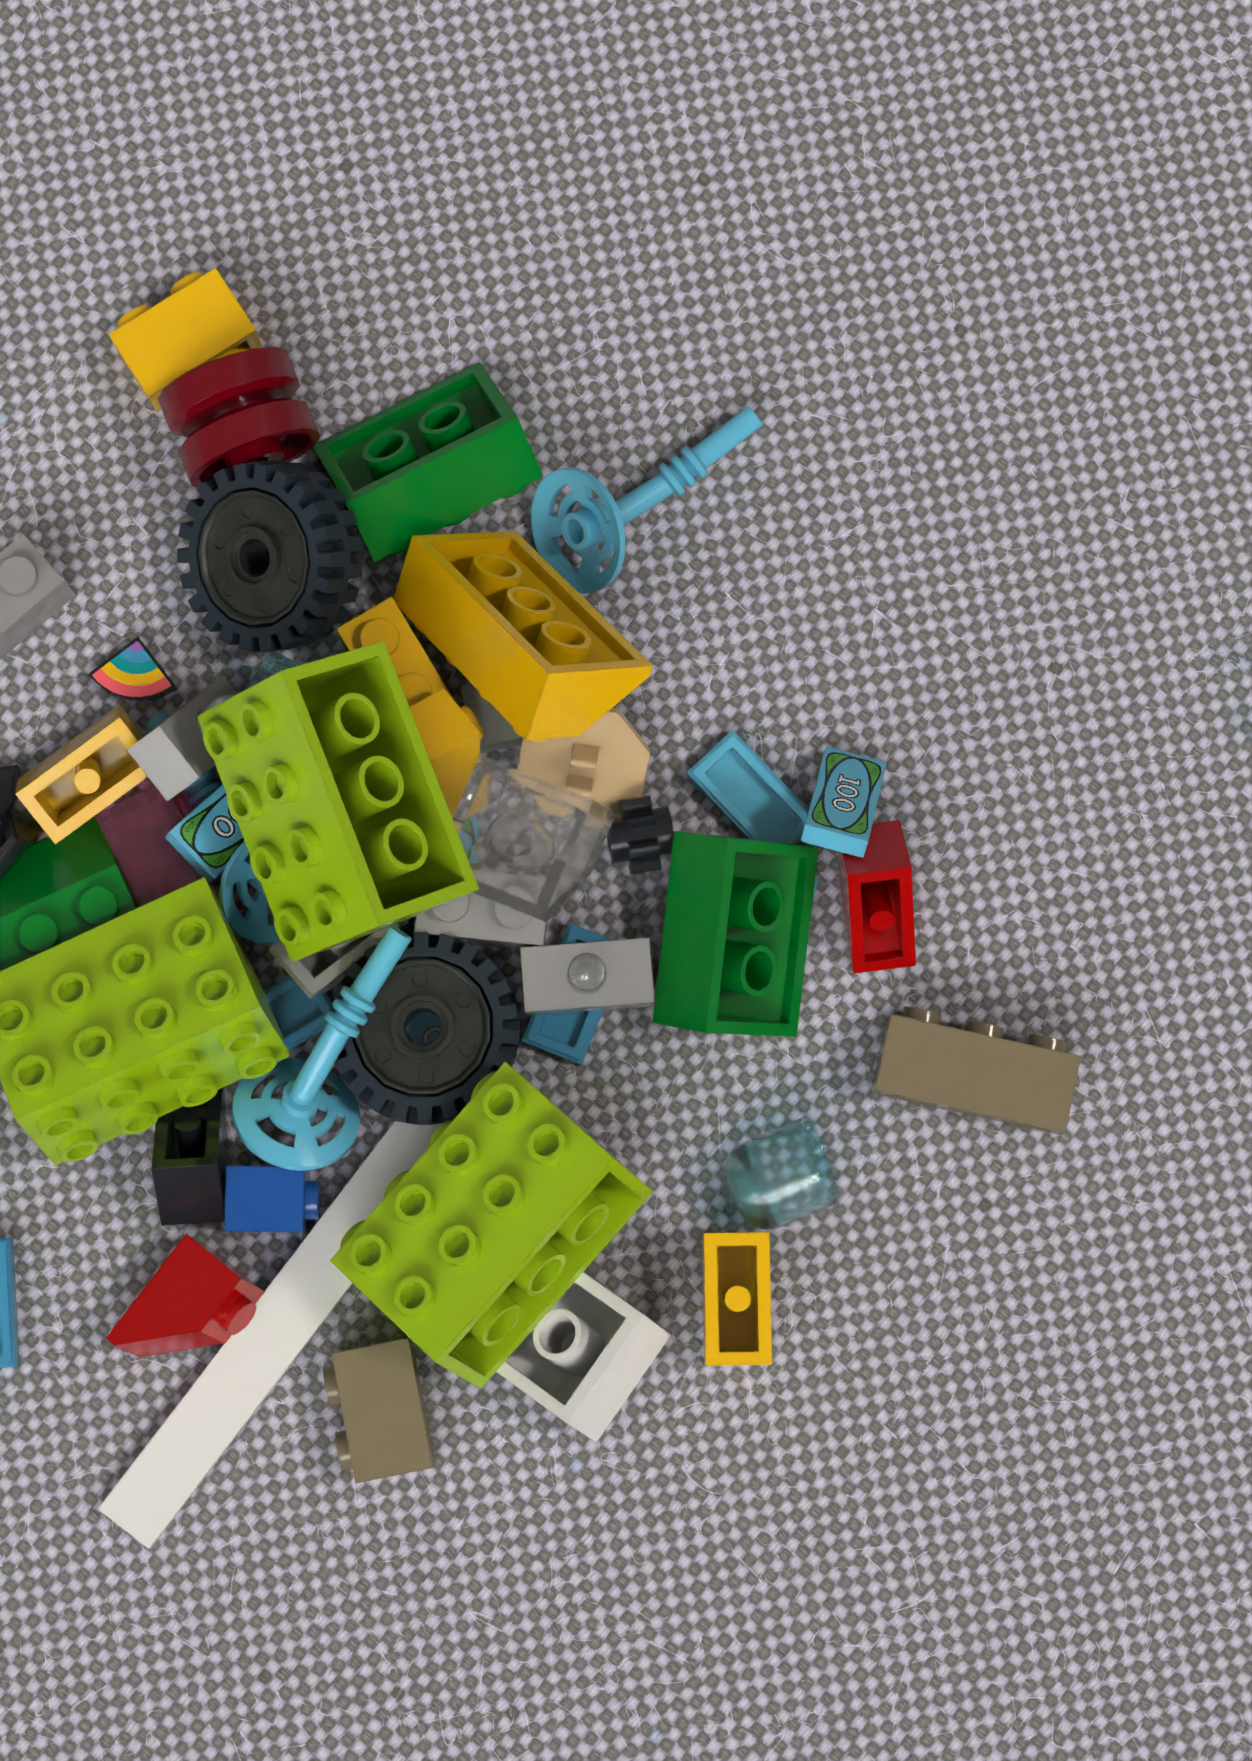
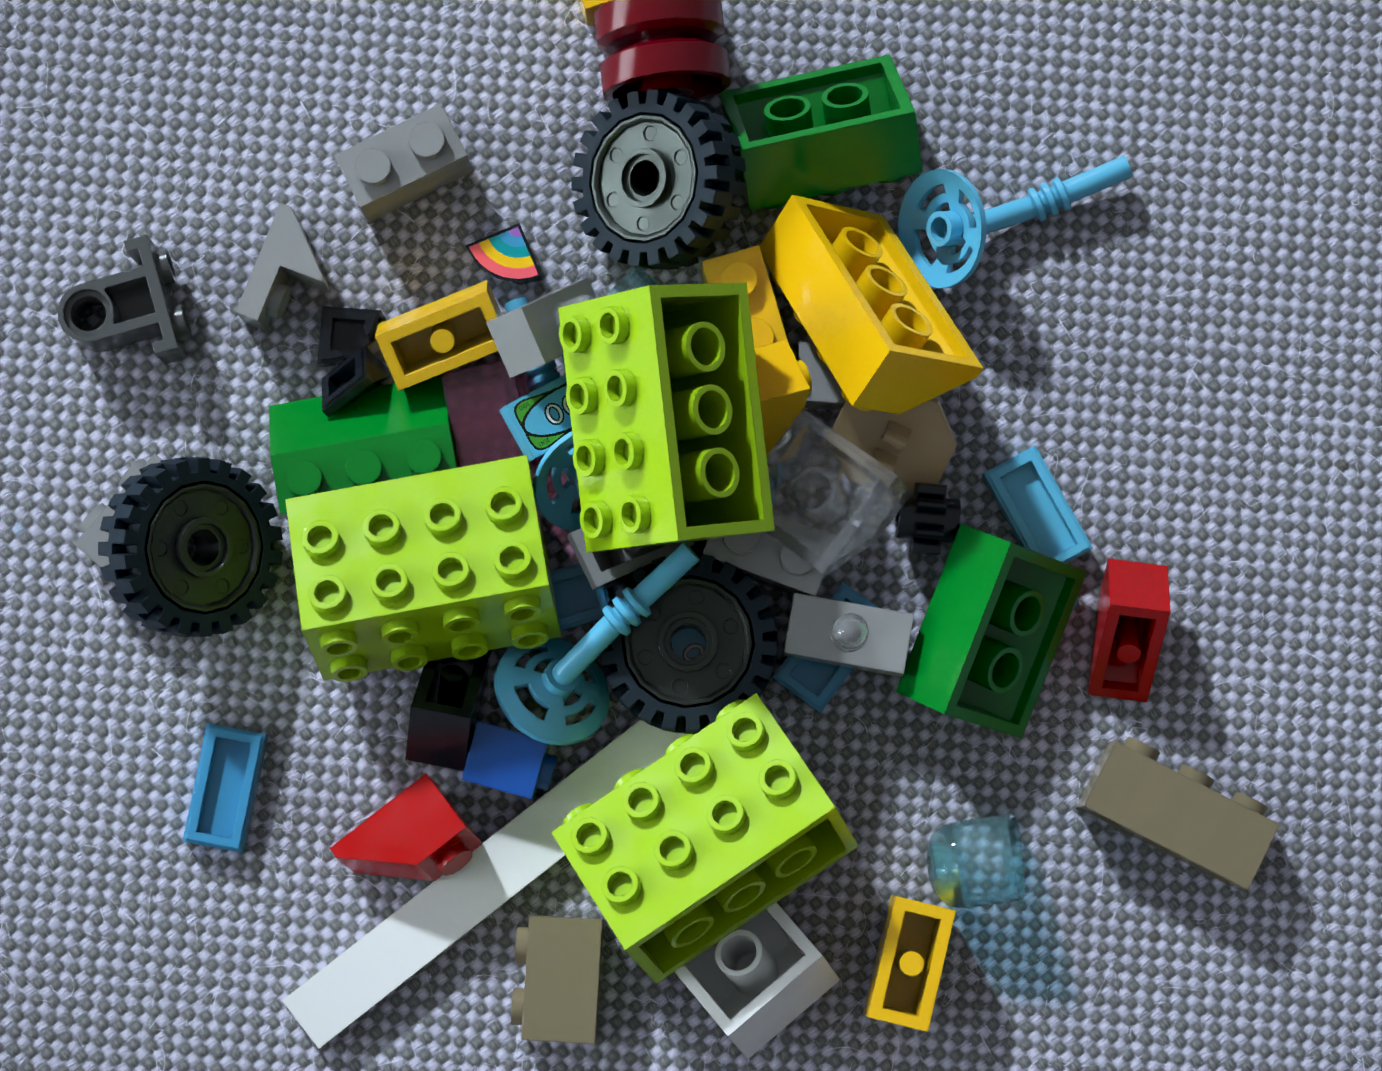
camera: 15 degrees right, 0 degrees up
(844, 802) = (1121, 537): medium azure tile -> none

